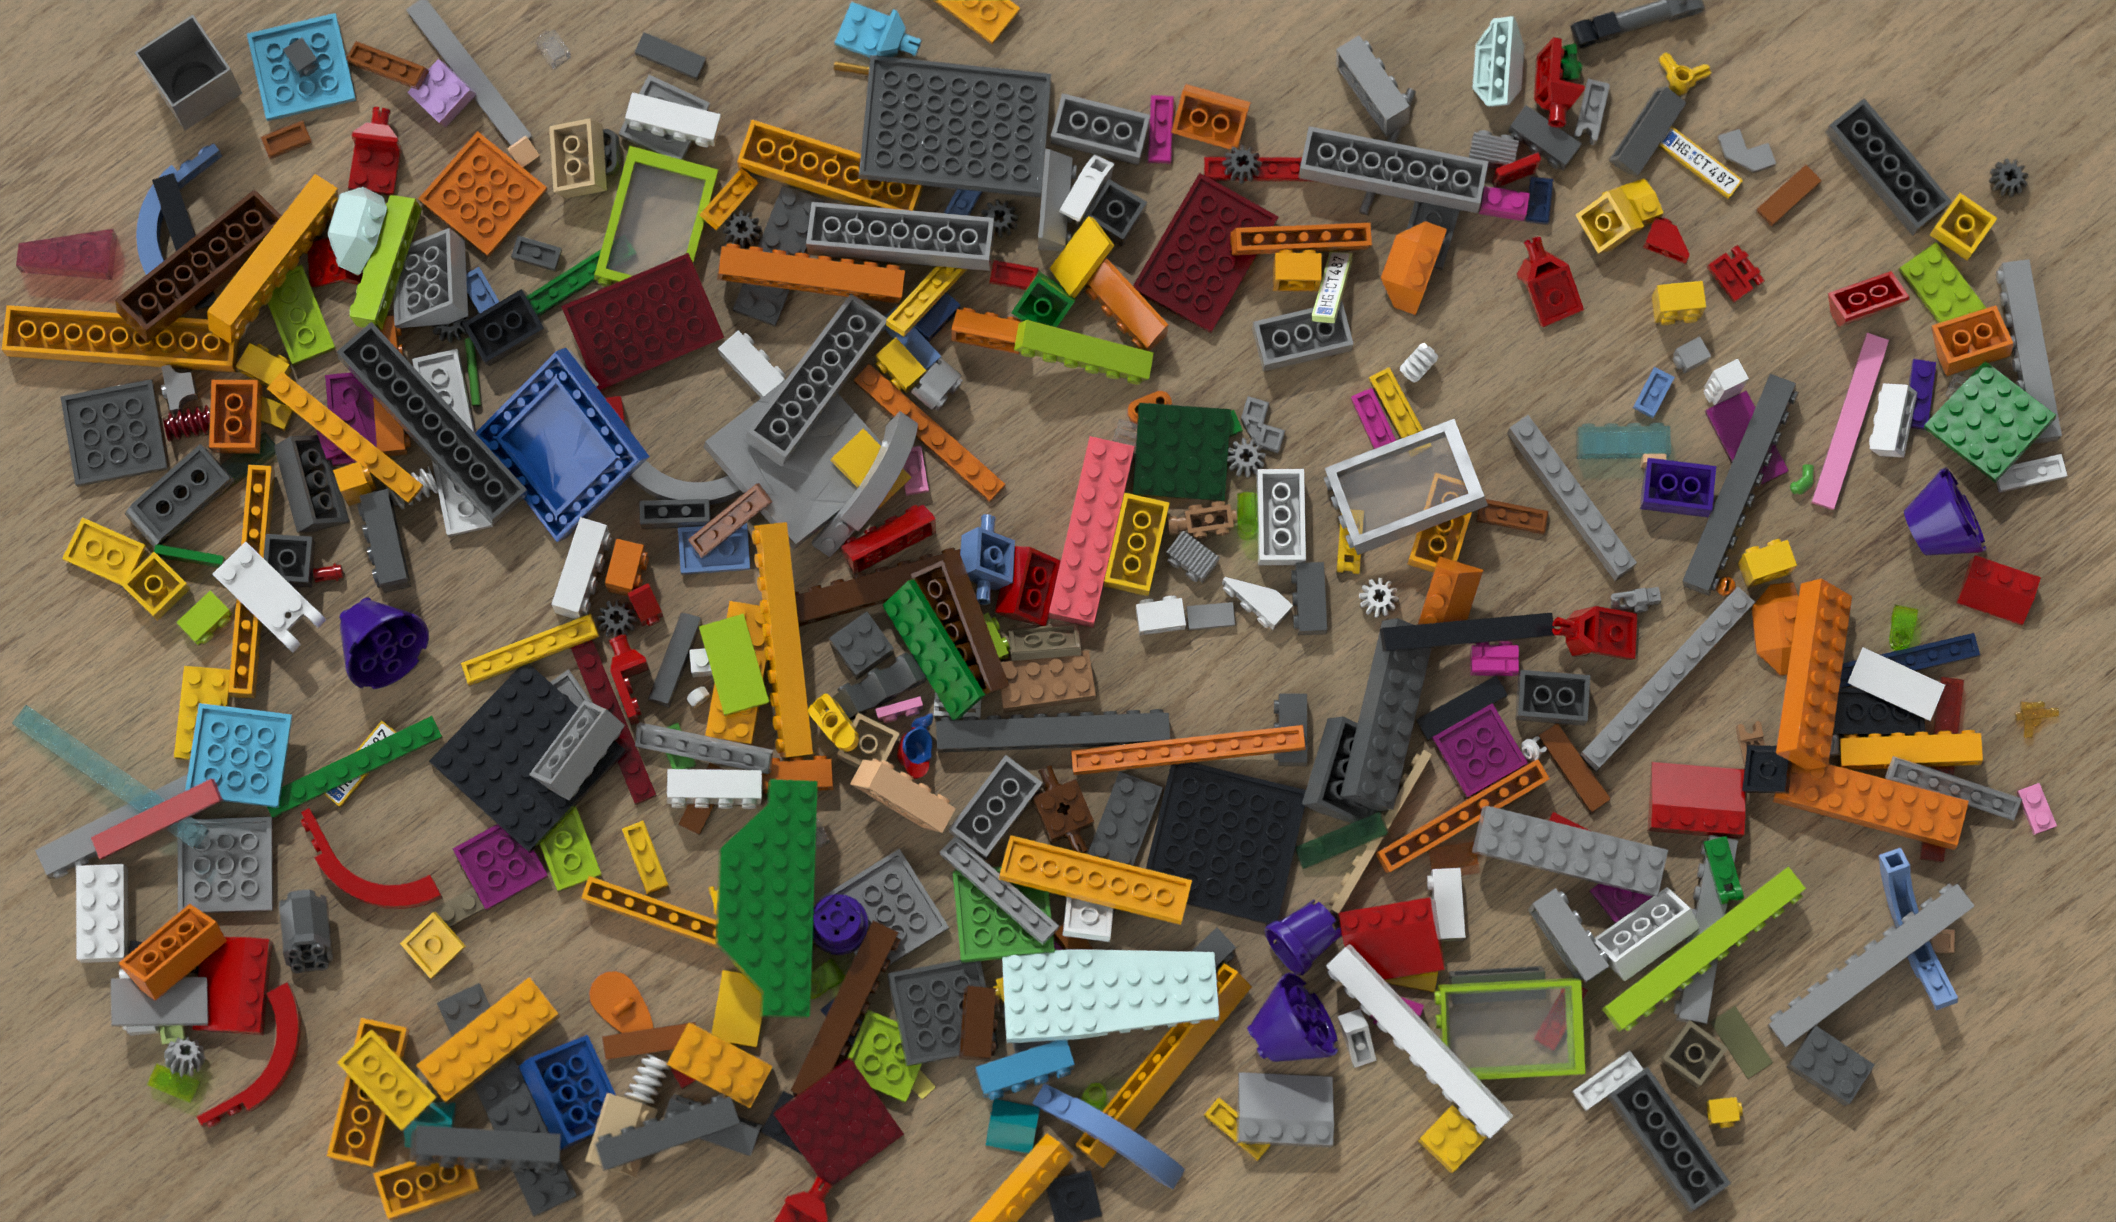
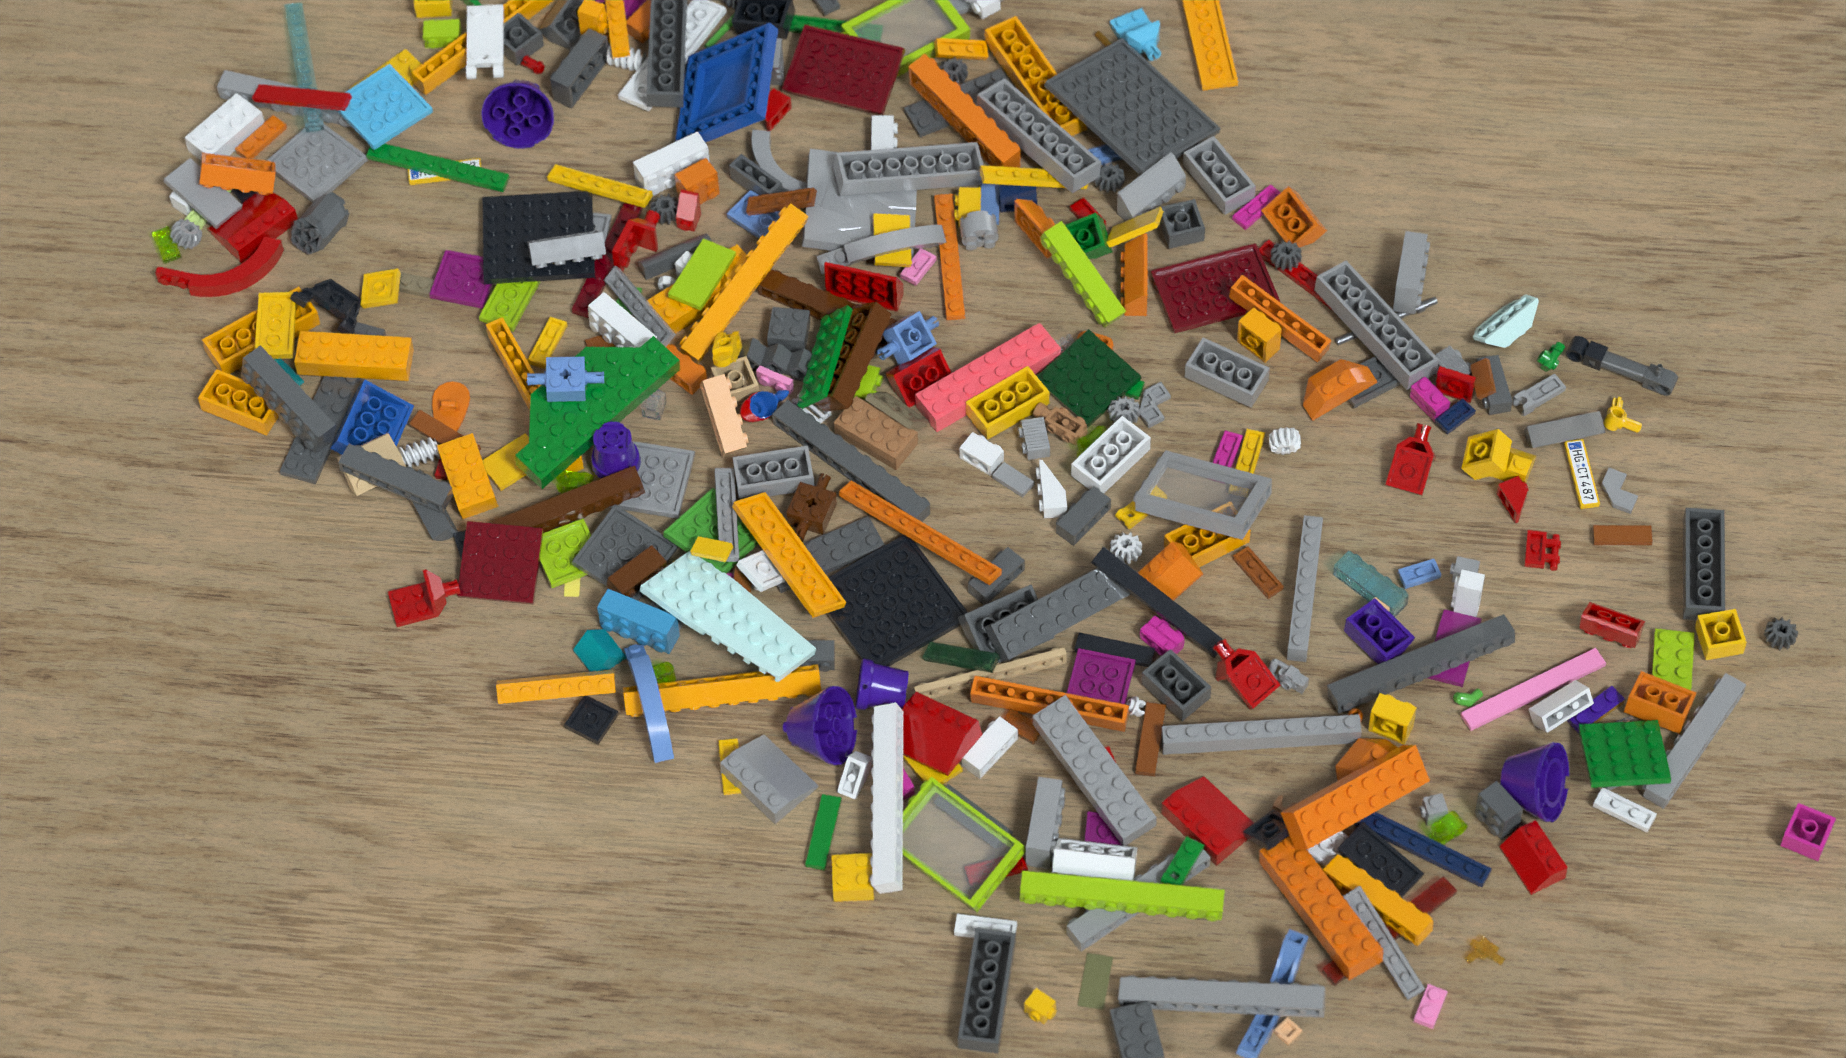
camera: 50 degrees right, 20 degrees down
(142, 887) = (261, 138): none -> orange plate
(384, 896) = (388, 249): red arch -> none
(407, 997) = (335, 299): none -> black wing
(727, 901) = (565, 378): none -> medium blue brick
(1029, 941) = (711, 549): none -> yellow tile
(1087, 187) = (1177, 193): white slope -> none
(1332, 287) = (1271, 357): tile -> none
(1381, 1117) = (823, 832): none -> green tile
(1538, 142) = (1484, 378): none -> dark orange tile
(1549, 89) = (1524, 362): red plate -> none
(1678, 302) = (1485, 532): yellow brick -> none
(1693, 1054) = (1054, 955): dark tan brick -> none
(1876, 619) = (1433, 808): none -> light grey brick
(1896, 684) = (1408, 854): white sticker -> none
(1934, 573) = (1498, 810): none -> dark grey brick

